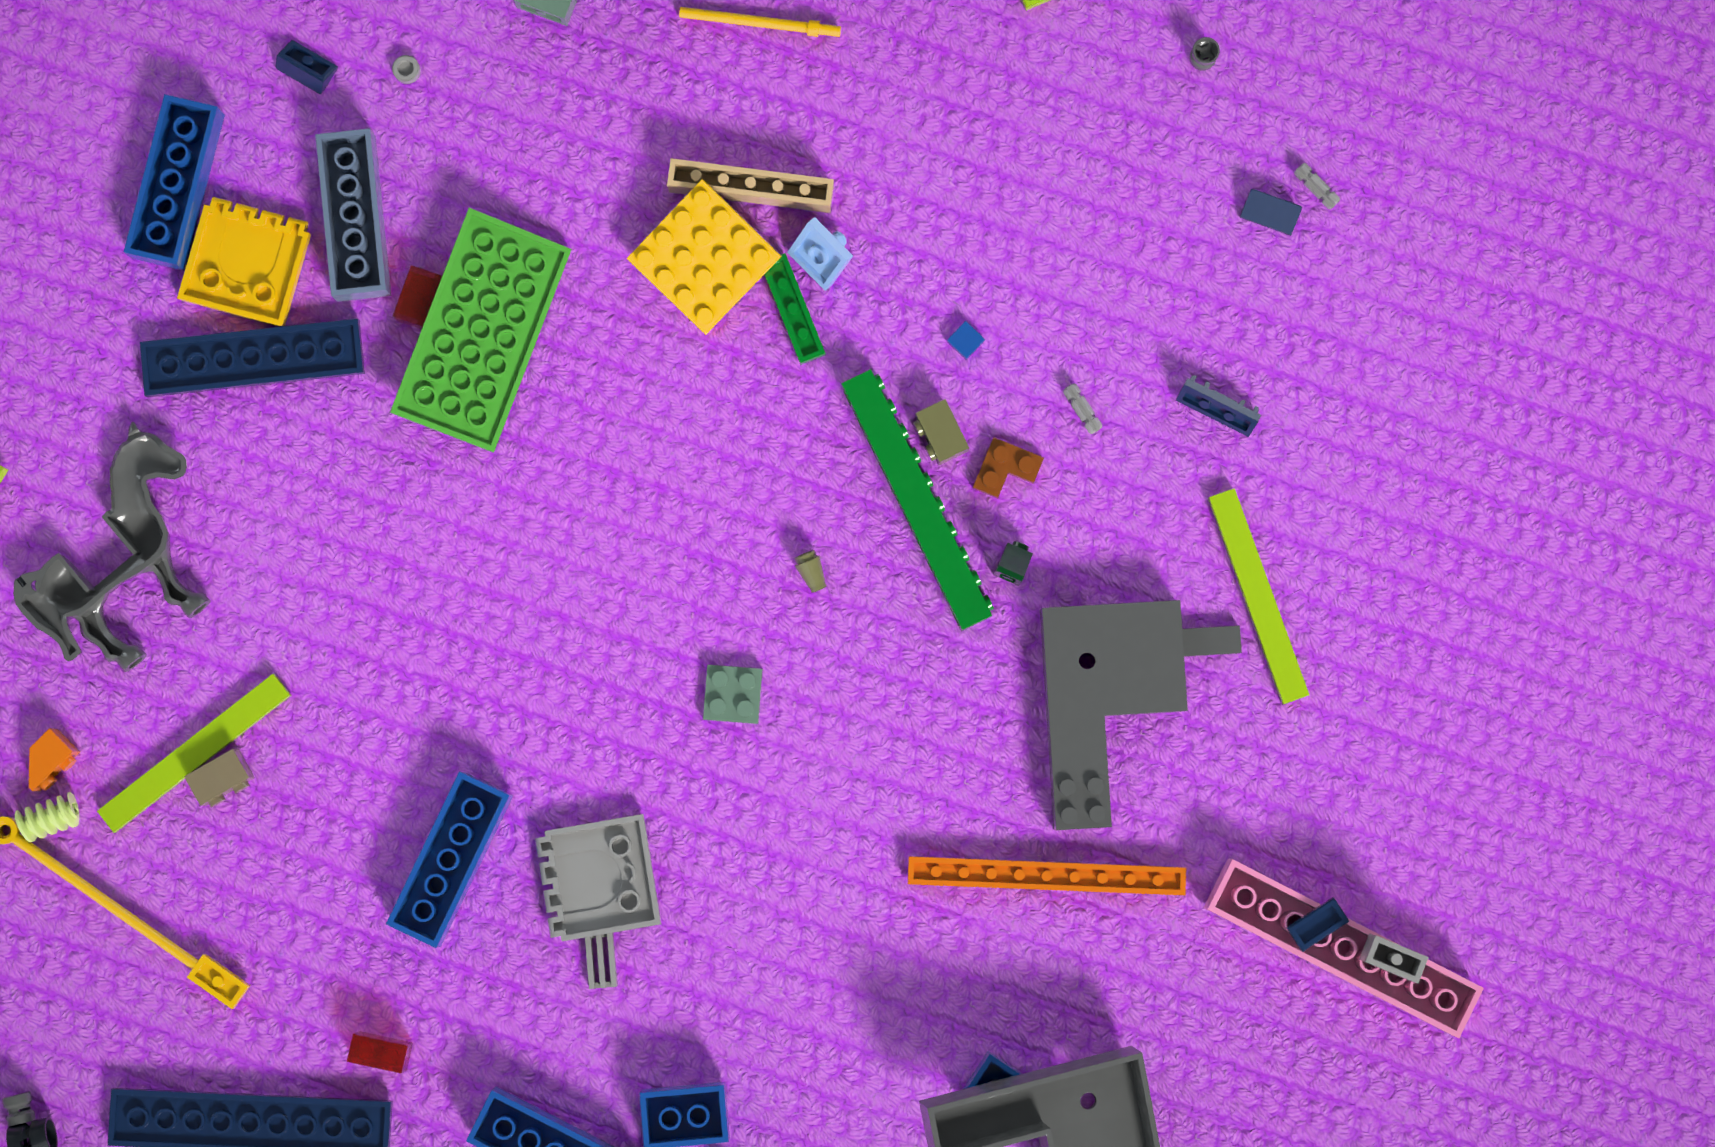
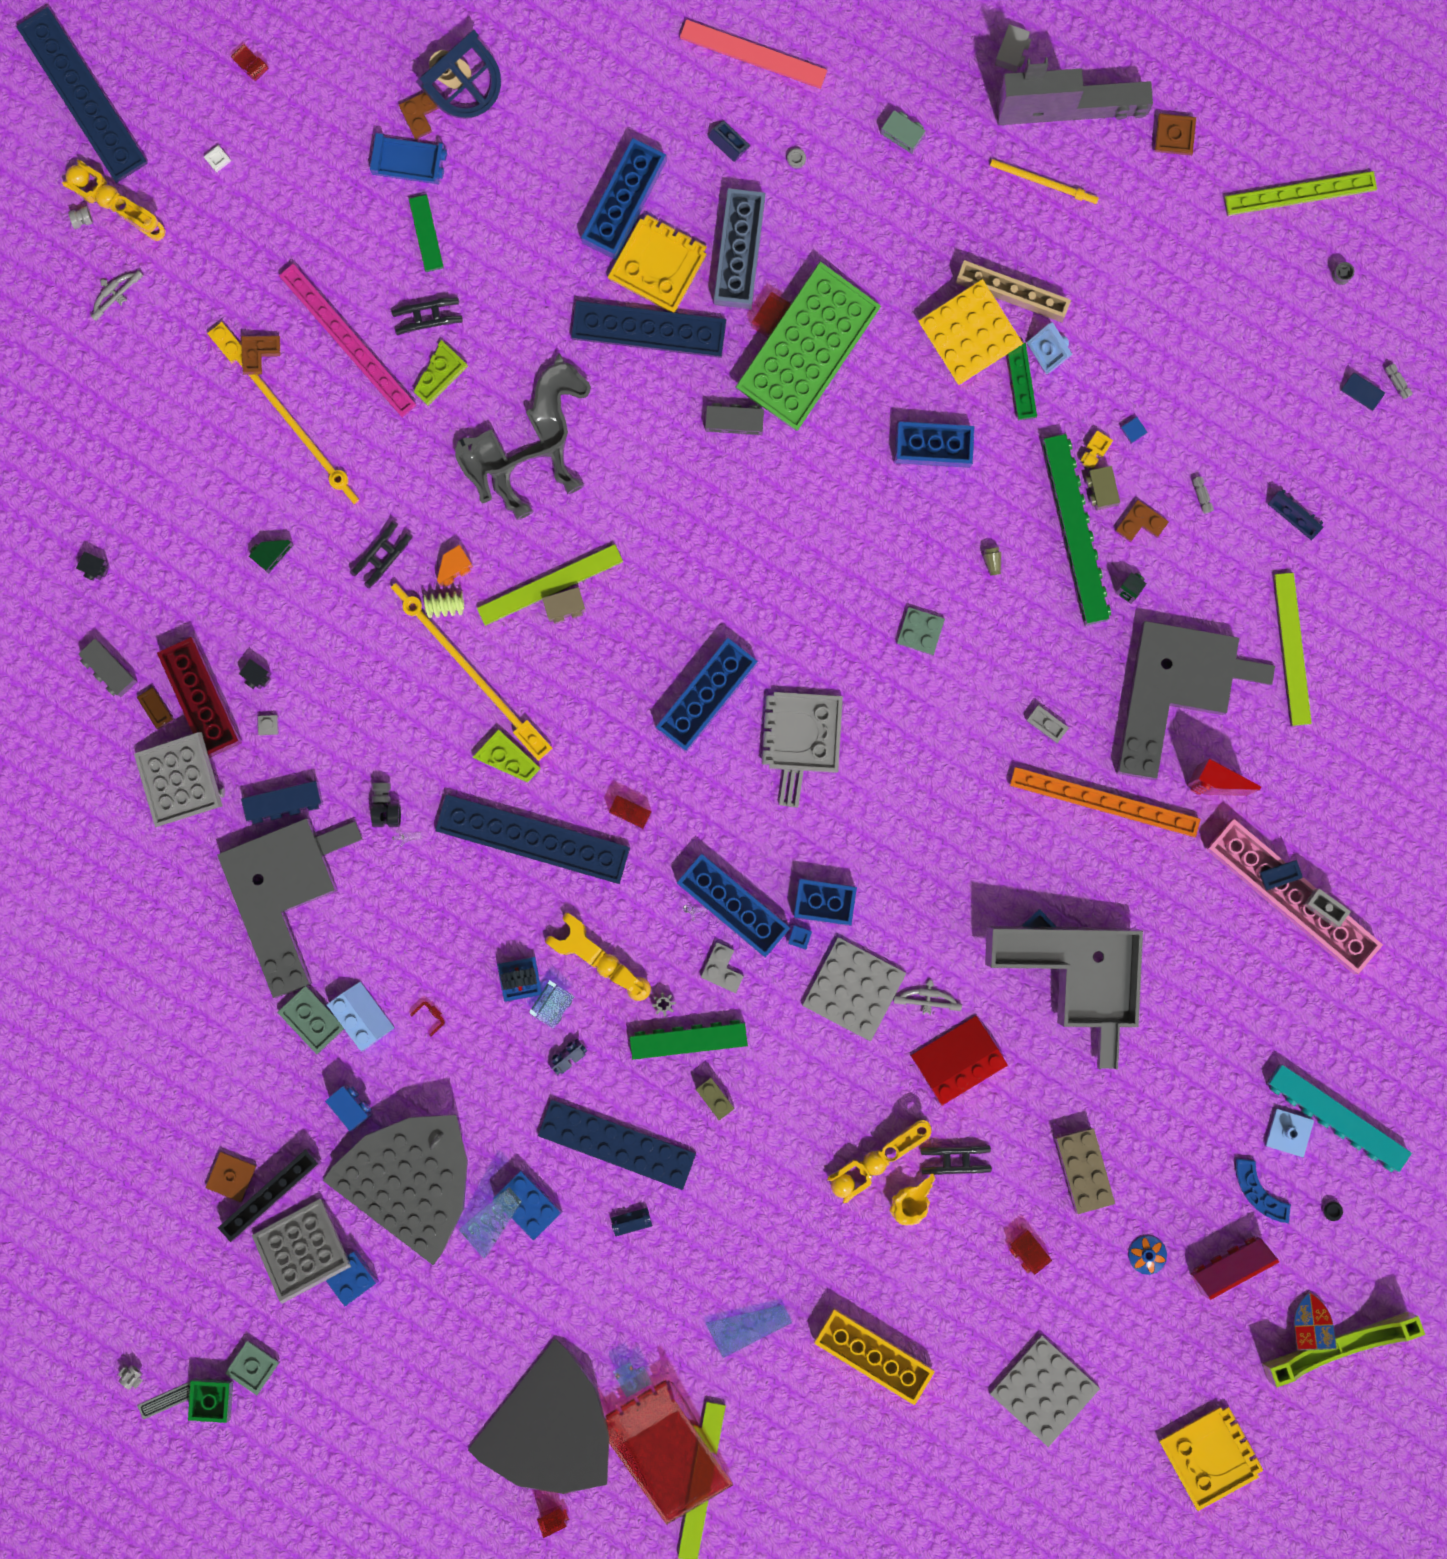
camera: 20 degrees right, 0 degrees up
(188, 1014) = (507, 757): none -> lime wing
(401, 457) = (734, 419): none -> dark grey brick
(690, 427) = (934, 444): none -> blue brick
(920, 373) = (1098, 445): none -> yellow plate
(940, 784) = (1047, 724): none -> light grey plate
(1188, 812) = (1215, 779): none -> red slope

